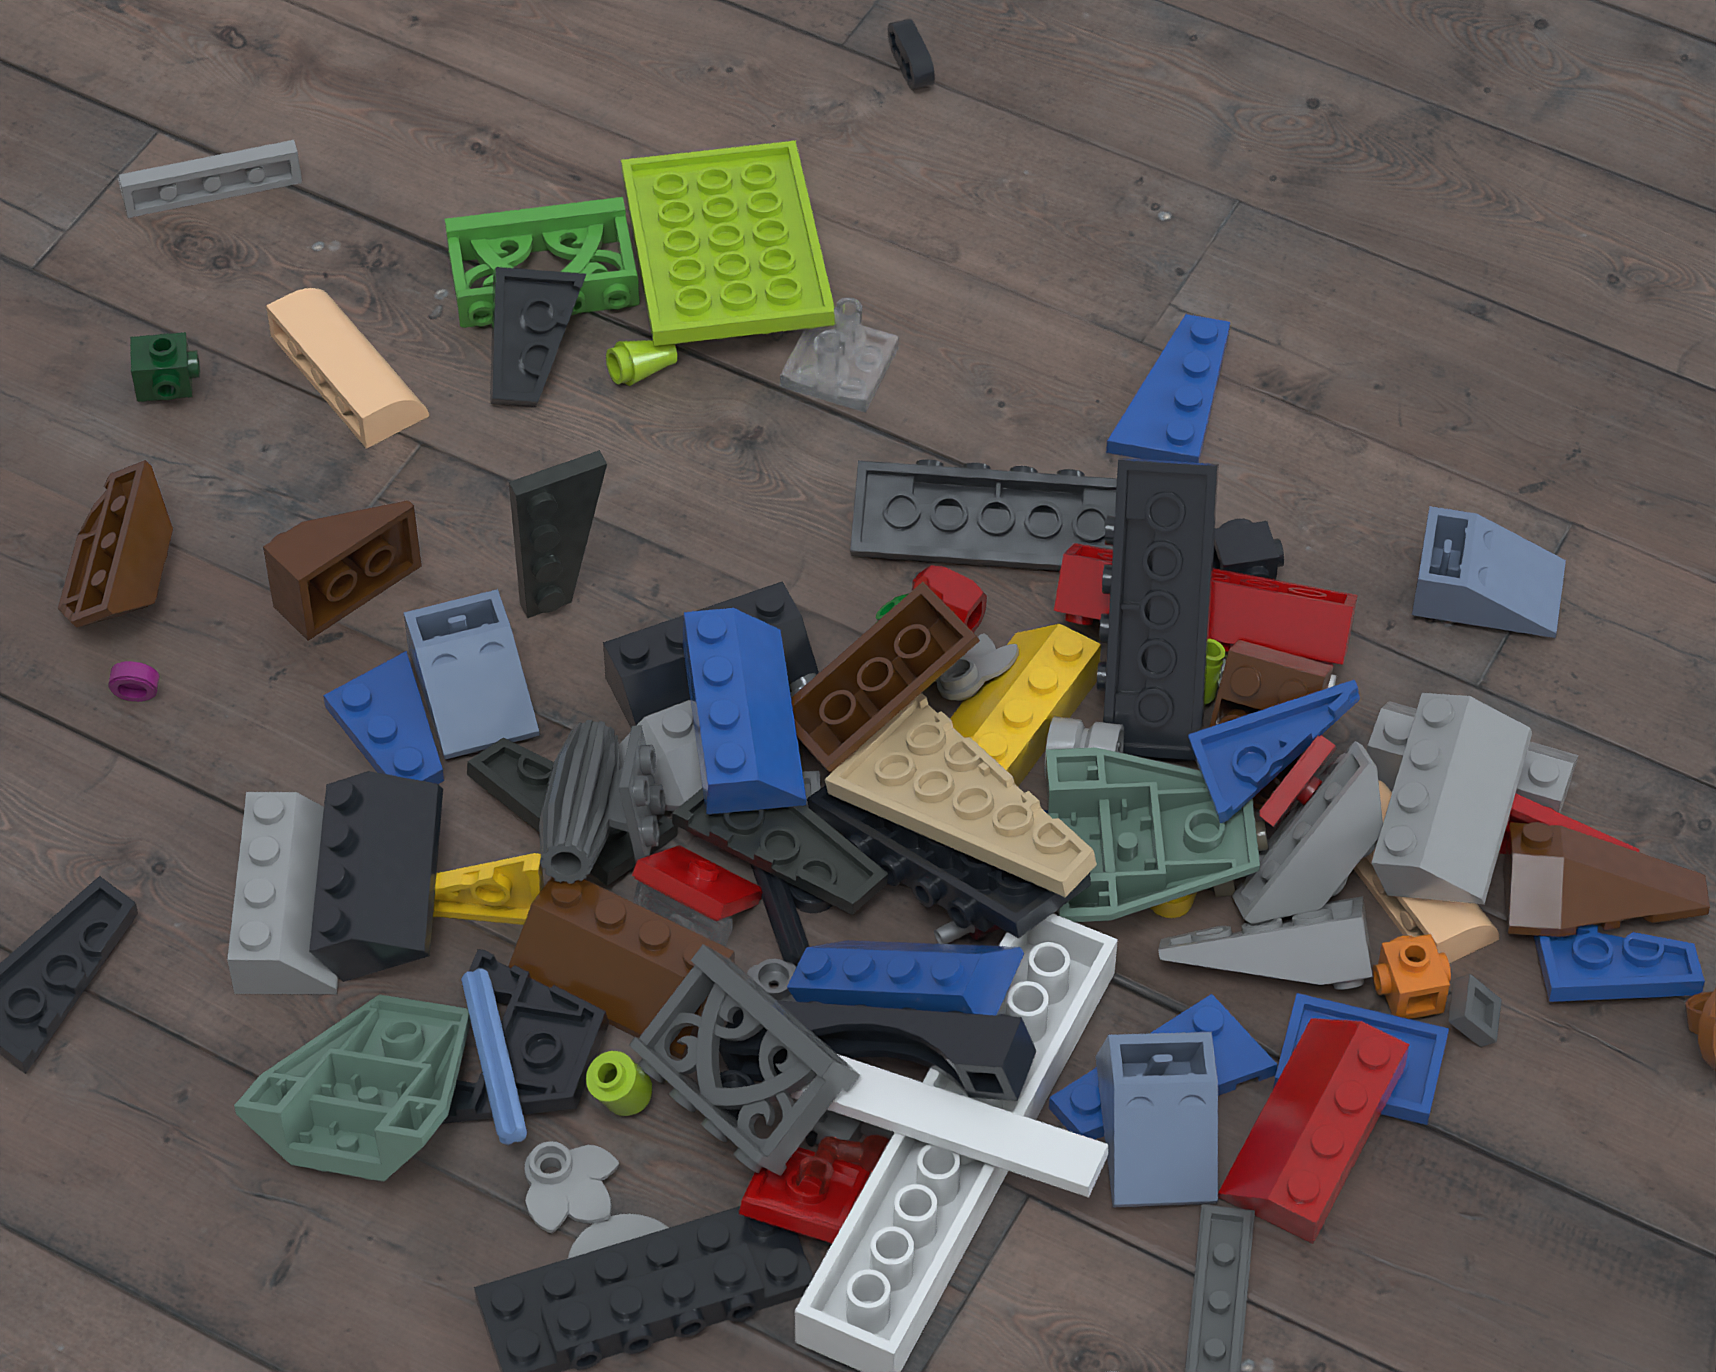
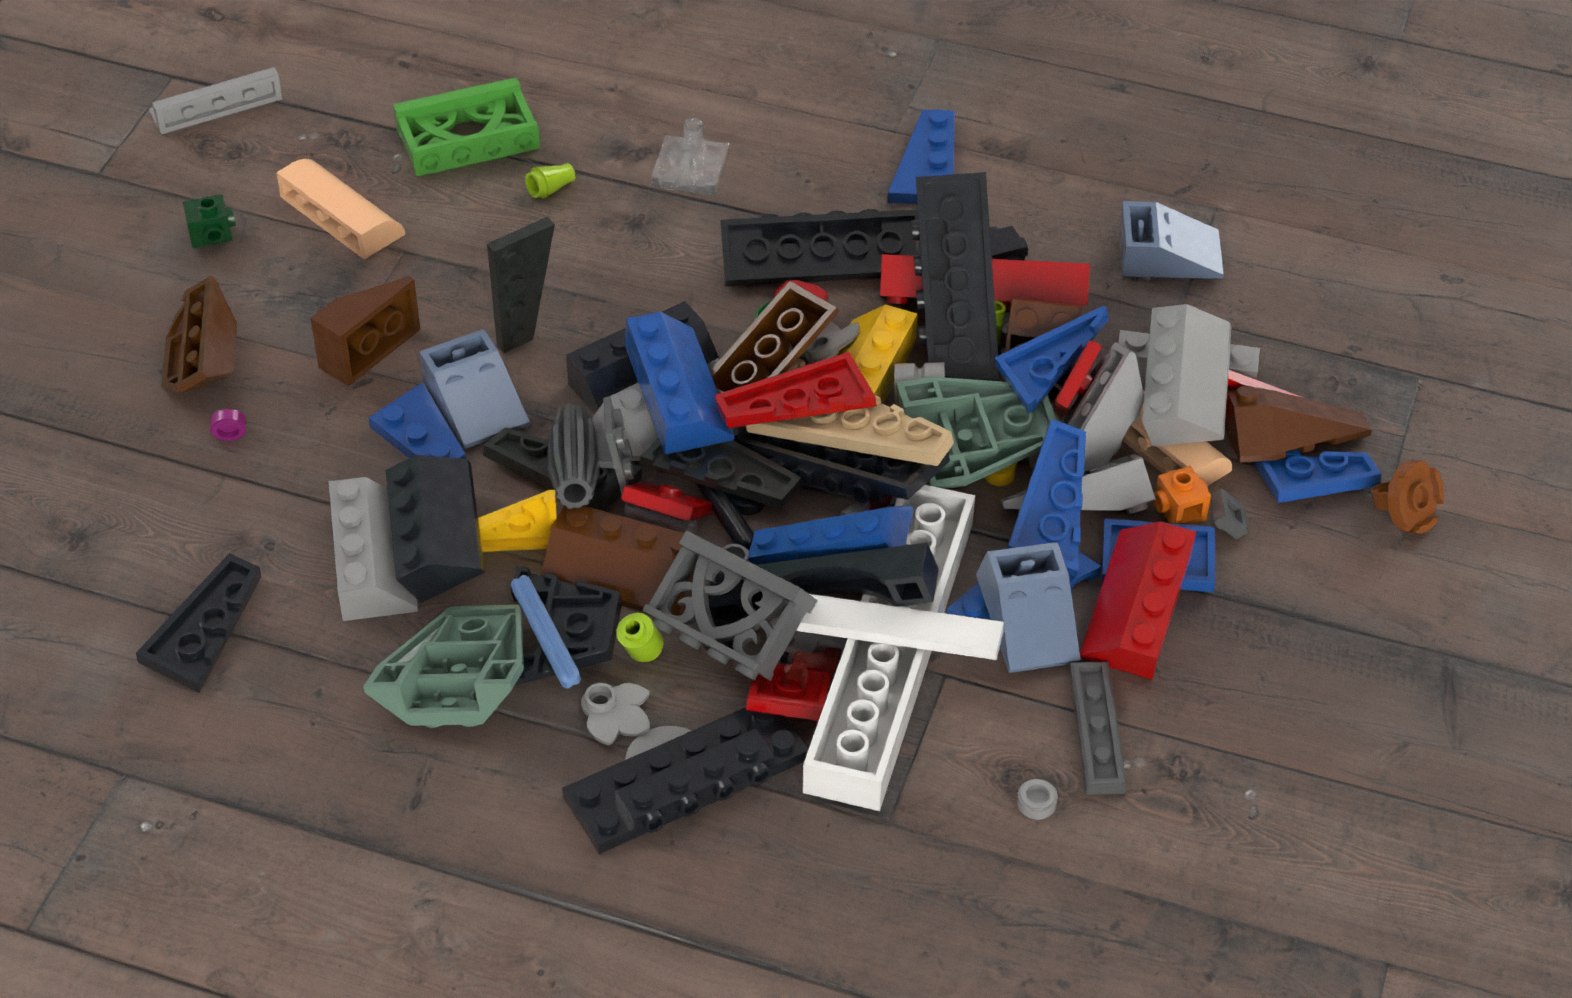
camera: 10 degrees left, 5 degrees down
(527, 329) = (466, 167): black wing -> none
(726, 243) = (595, 99): lime plate -> none
(912, 753) = (802, 392): none -> red wing
(1226, 960) = (1054, 495): none -> blue wing

